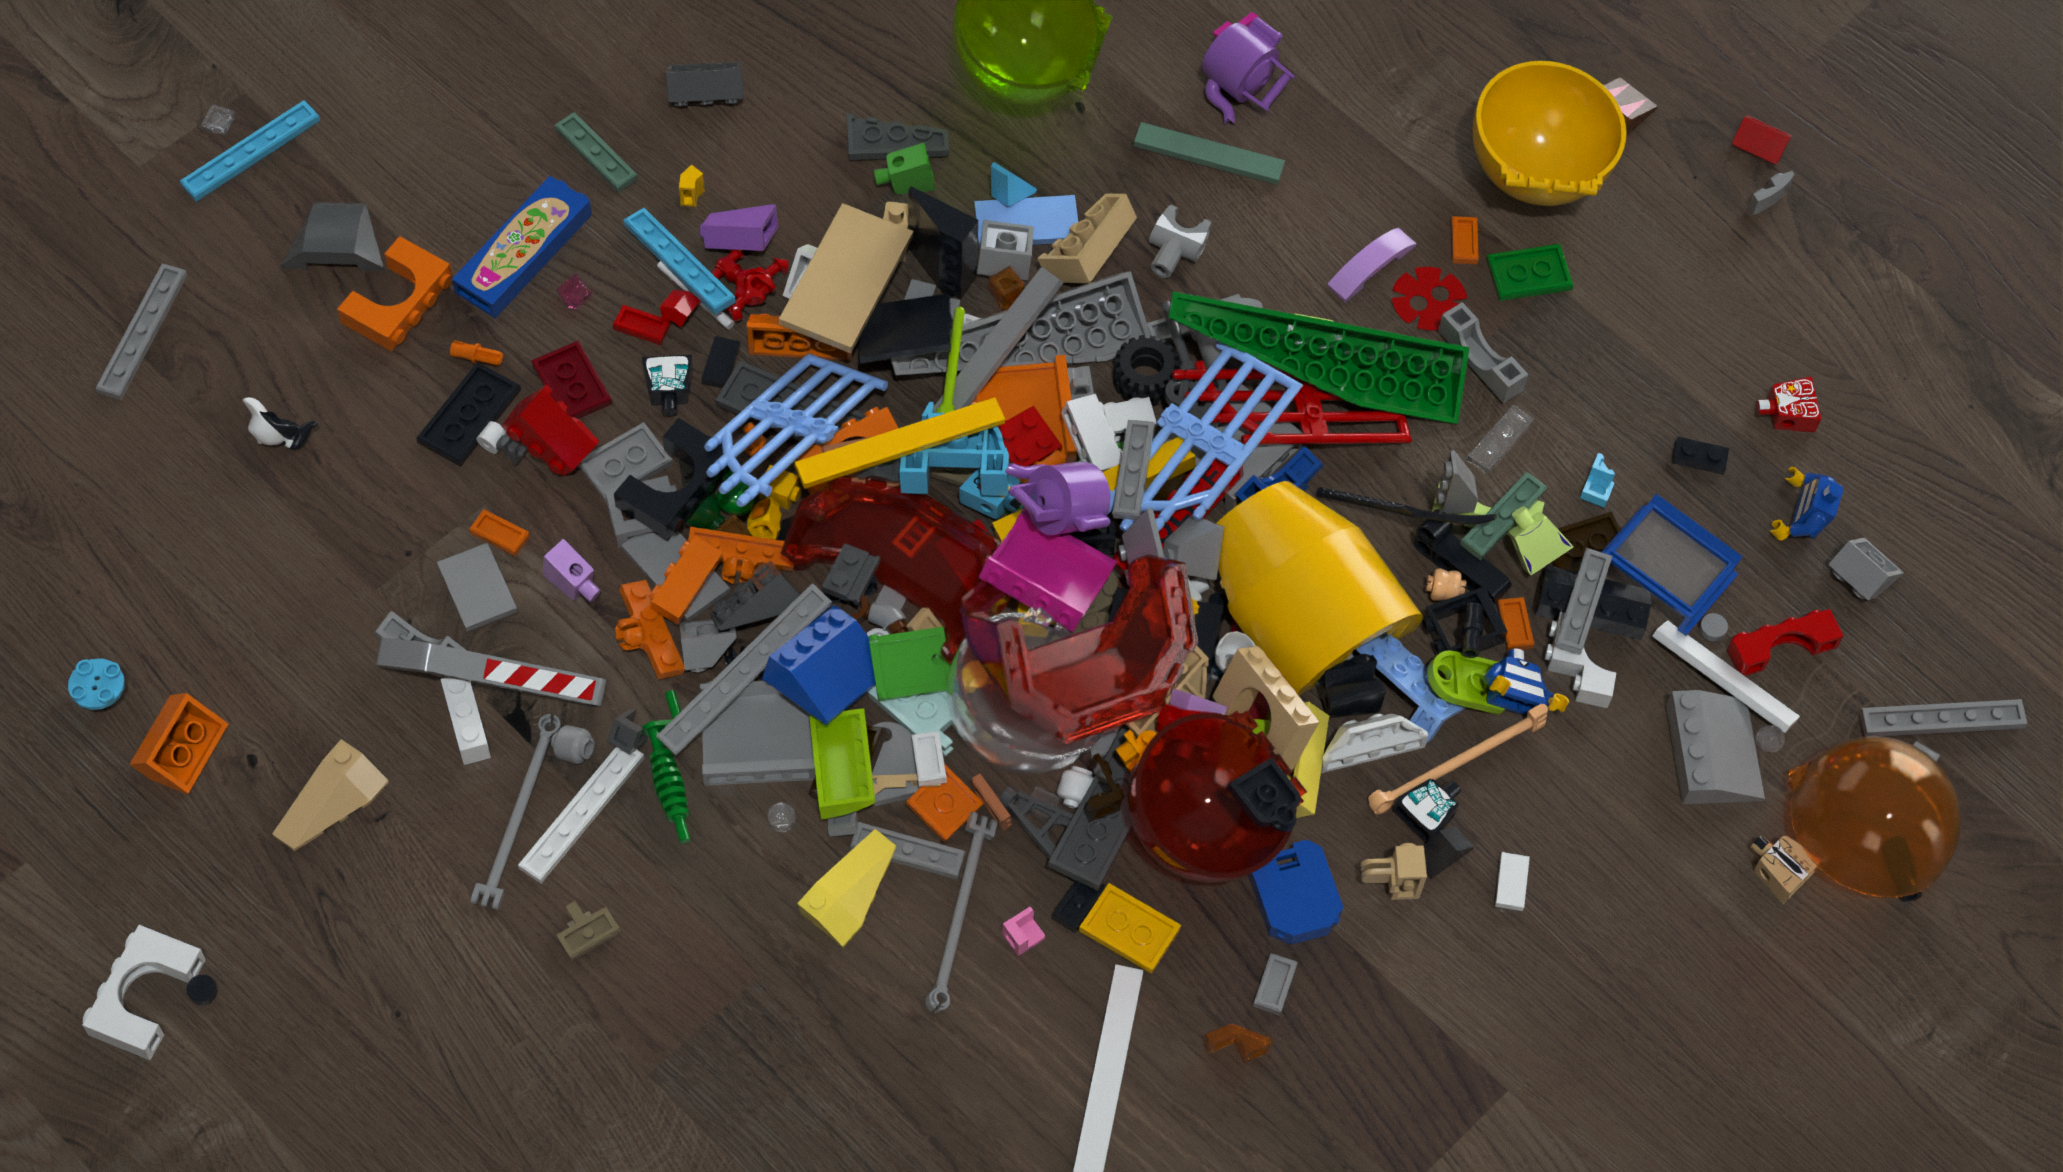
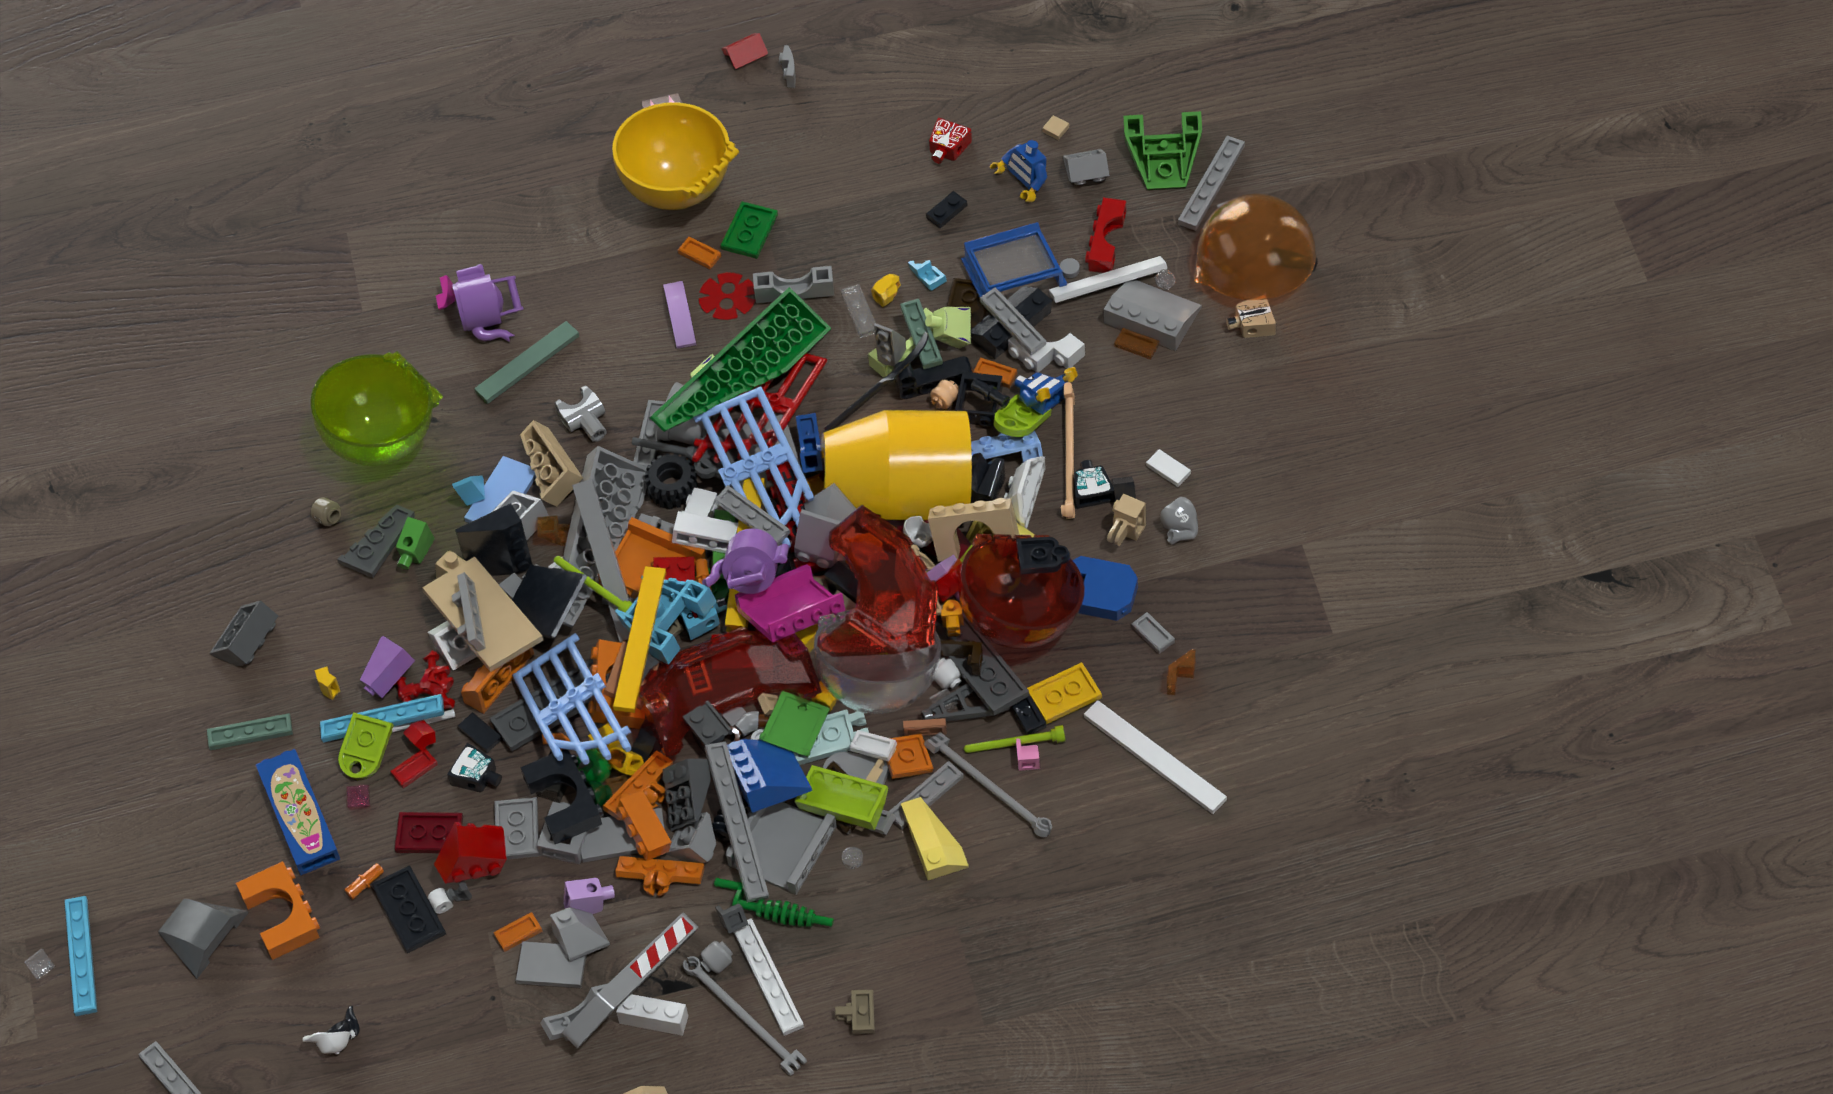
camera: 50 degrees left, 5 degrees down
(524, 590) = (577, 932): none -> light grey slope
(634, 262) = (364, 744): none -> lime tile
(832, 262) = (467, 599): none -> light grey hinge
(897, 71) = (325, 511): none -> dark tan head
(1070, 949) = (1055, 734): none -> lime piece
(1443, 932) = (1180, 520): none -> light grey piece
(1546, 449) = (885, 289): none -> yellow rock
(1660, 755) = (1136, 343): none -> clear orange tile
(1896, 509) = (1055, 127): none -> tan tile
(1940, 650) = (1167, 158): none -> bright green wedge

